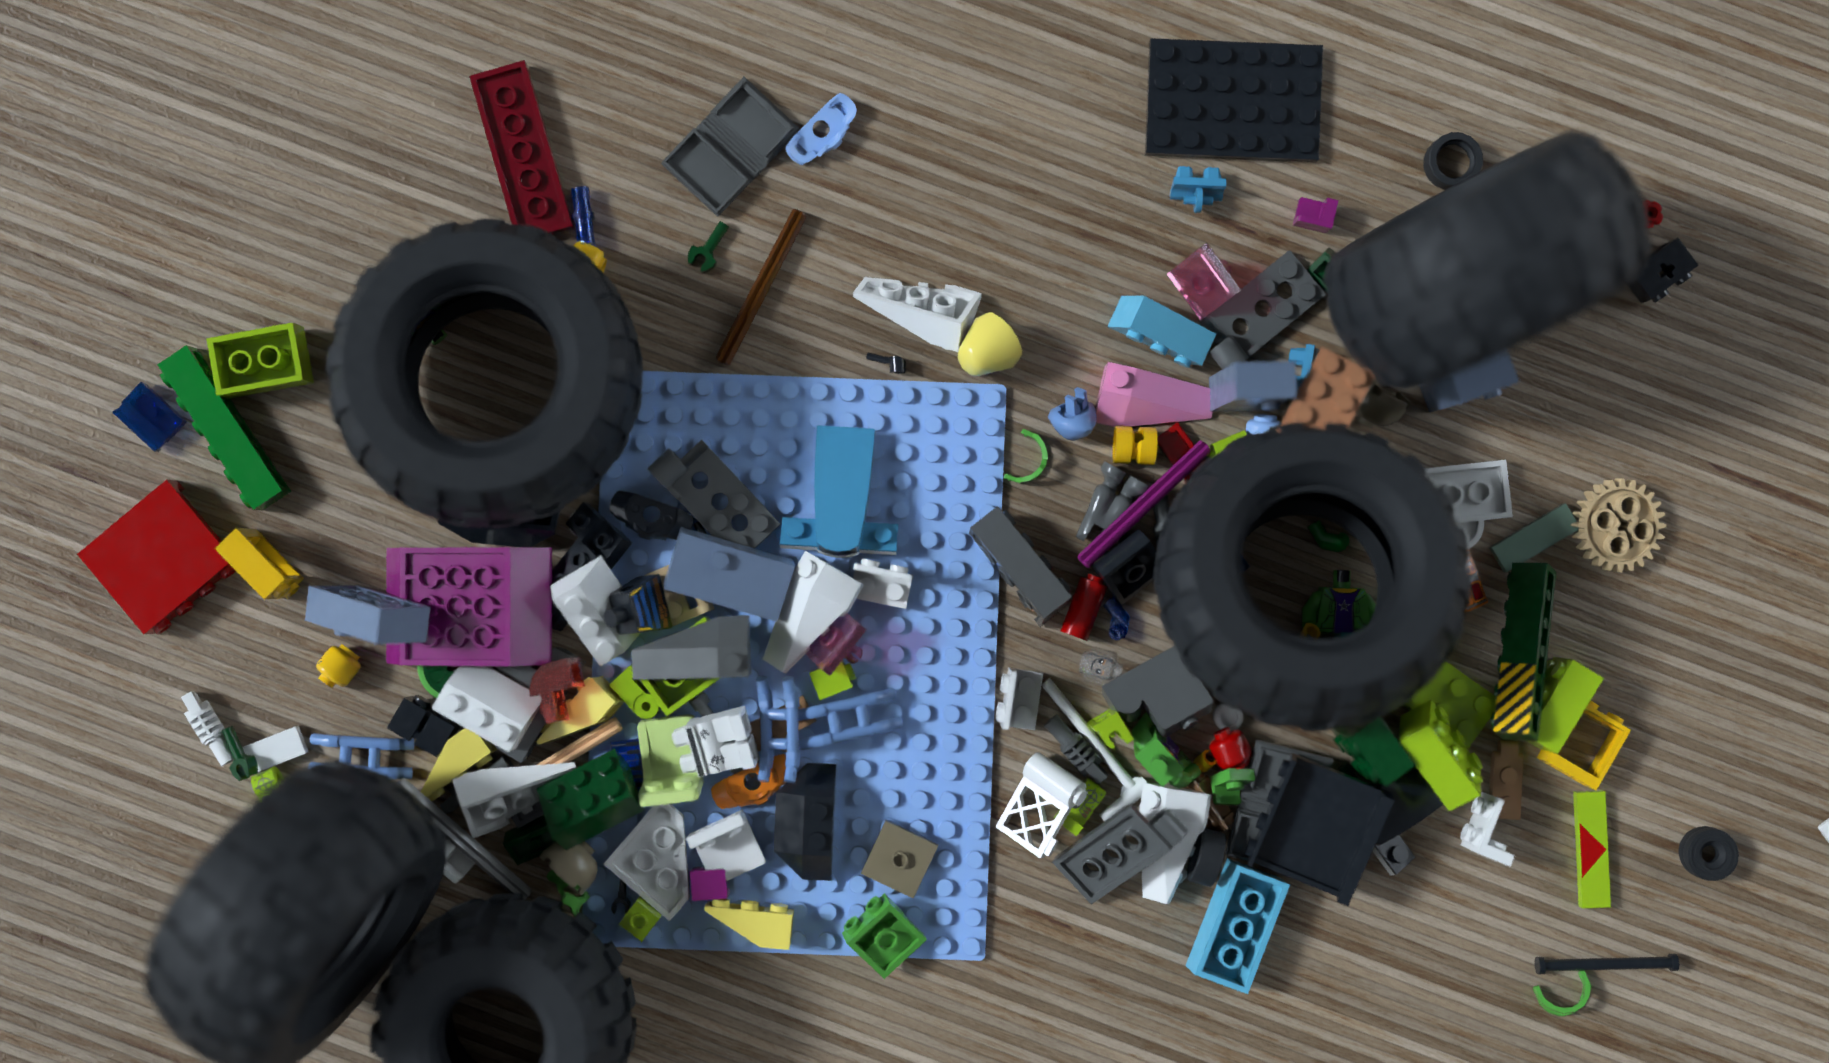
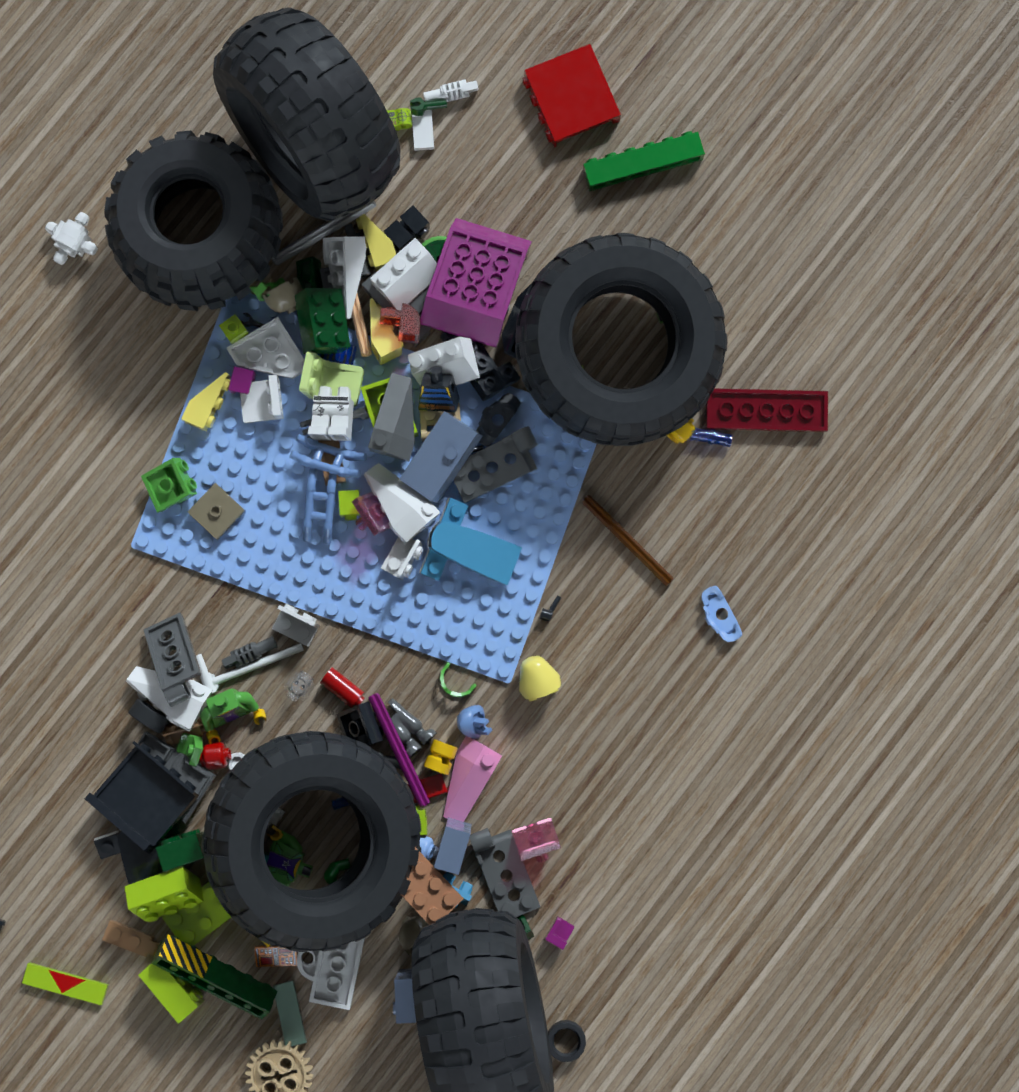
camera: 105 degrees right, 5 degrees down
(149, 416) = (666, 116): clear blue plate -> none
(260, 360) = (680, 198): lime brick -> none
(260, 564) = (546, 157): yellow window -> none
(338, 666) = (464, 186): yellow head -> none
(367, 614) = (489, 215): sand blue brick -> none
(374, 745) = (403, 194): medium blue piece -> none
(456, 863) = (309, 222): white panel -> none
(635, 695) = (381, 371): lime leg -> none
(708, 248) = (664, 513): dark green bar -> none
(730, 146) = (728, 549): dark grey piece -> none
(733, 793) = (296, 415): orange piece -> none
(807, 822) = (261, 458): black wedge -> none
(930, 313) = (573, 648): white wedge -> none
(1021, 565) = (384, 653): dark grey wedge -> none
(1054, 785) = (228, 630): white piece -> none
(1080, 814) = (210, 642): lime leg -> none
(1106, 724) = (258, 678): lime hinge -> none
(1119, 621) = (327, 710): clear blue arm -> none
(1162, 330) = (512, 801): medium azure wedge -> none
(1164, 691) = (269, 720): dark grey brick -> none
(1197, 190) = (600, 855): dark azure hips -> none
(1234, 100) = (655, 902): black plate -> none
(1237, 926) = (96, 722): medium azure brick -> none
(1478, 832) = (101, 904): white bracket -> none
(1611, 746) = (124, 1012): yellow window -> none
(1725, 857) = (23, 1067): black tyre -> none

